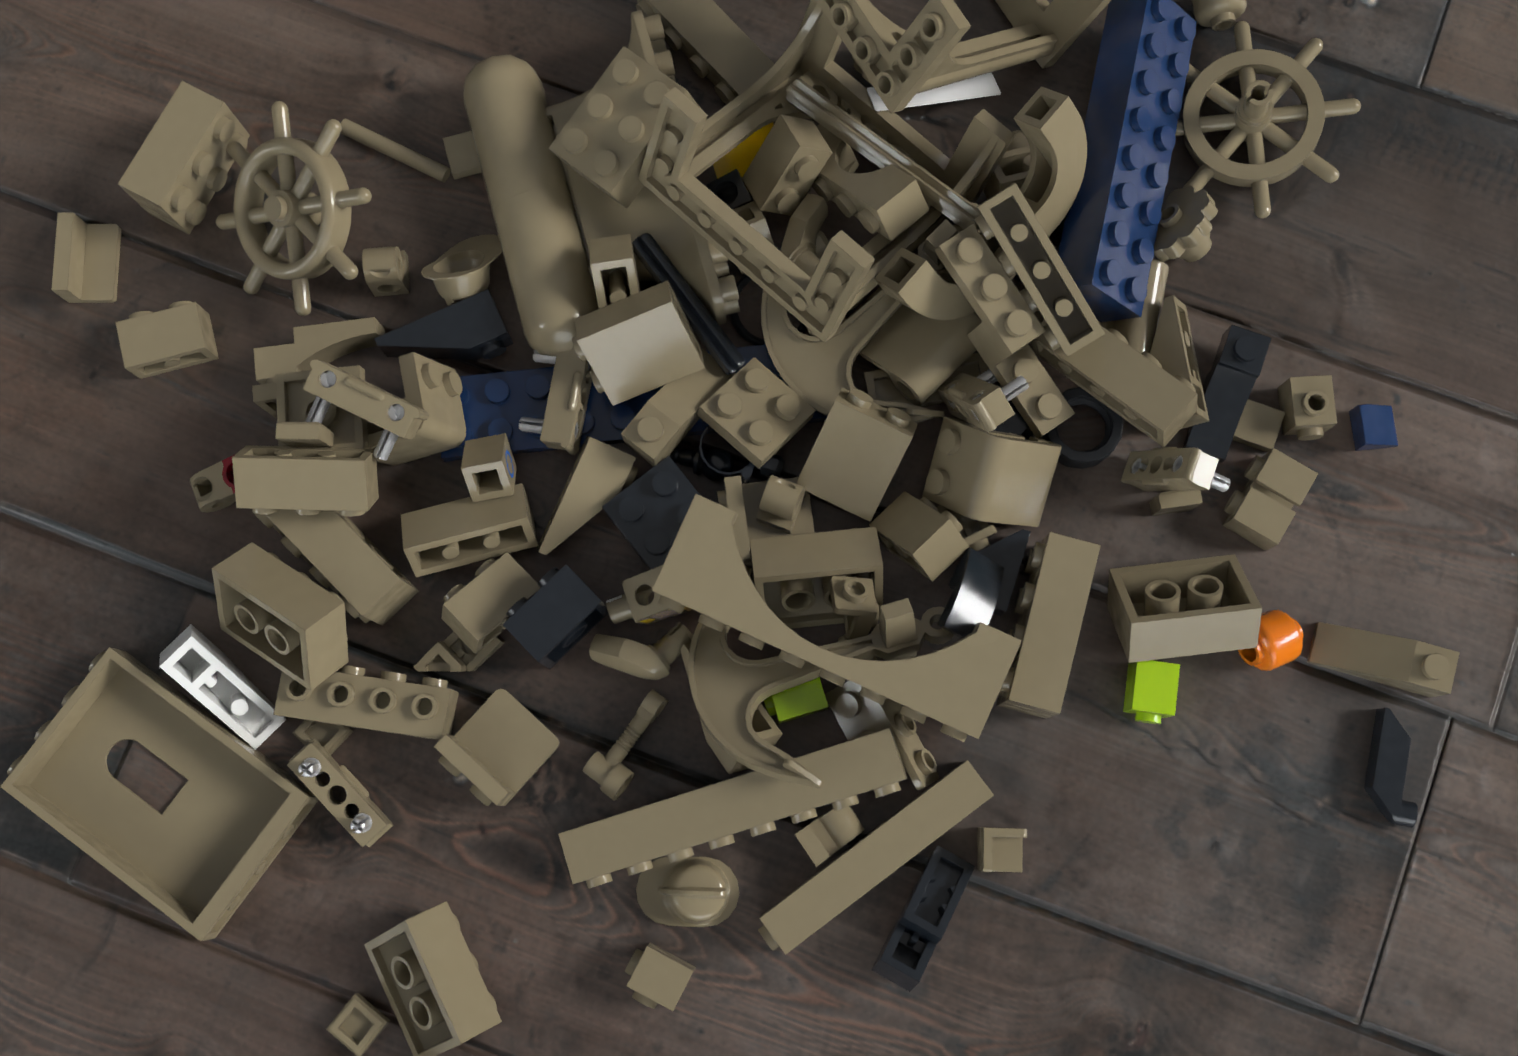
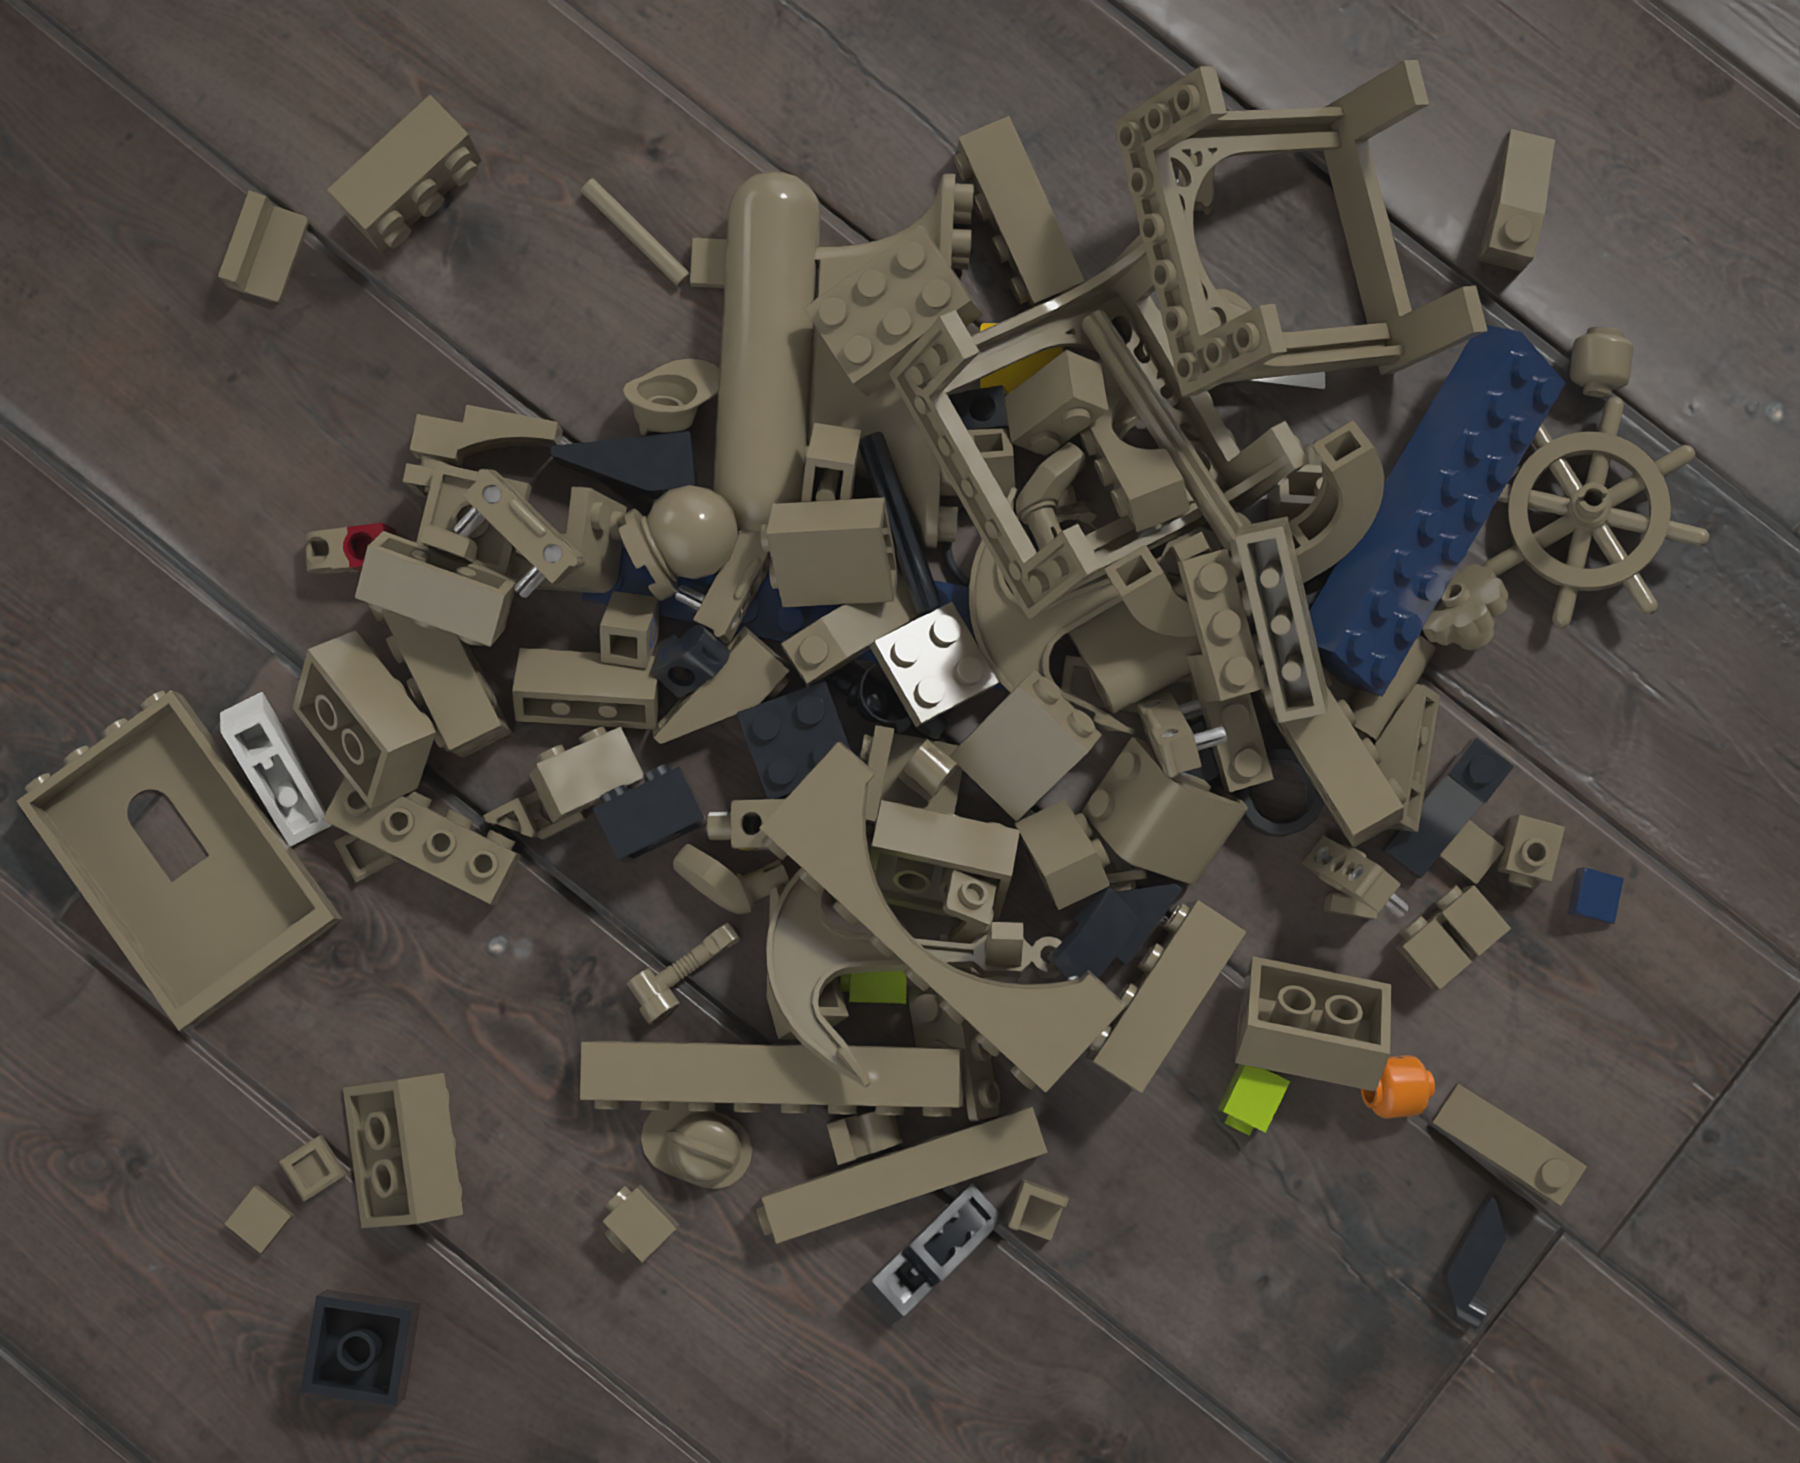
camera: 10 degrees right, 5 degrees up
(166, 339) = (325, 368): dark tan brick -> none
(293, 208) = (506, 275): dark tan piece -> none
(369, 823) = (349, 880): dark tan piece -> none
(386, 270) = (586, 371): dark tan leg -> none
(498, 748) = (546, 931): dark tan bracket -> none
(508, 371) = (684, 536): none -> dark tan tile
(552, 470) = (696, 653): none -> black leg

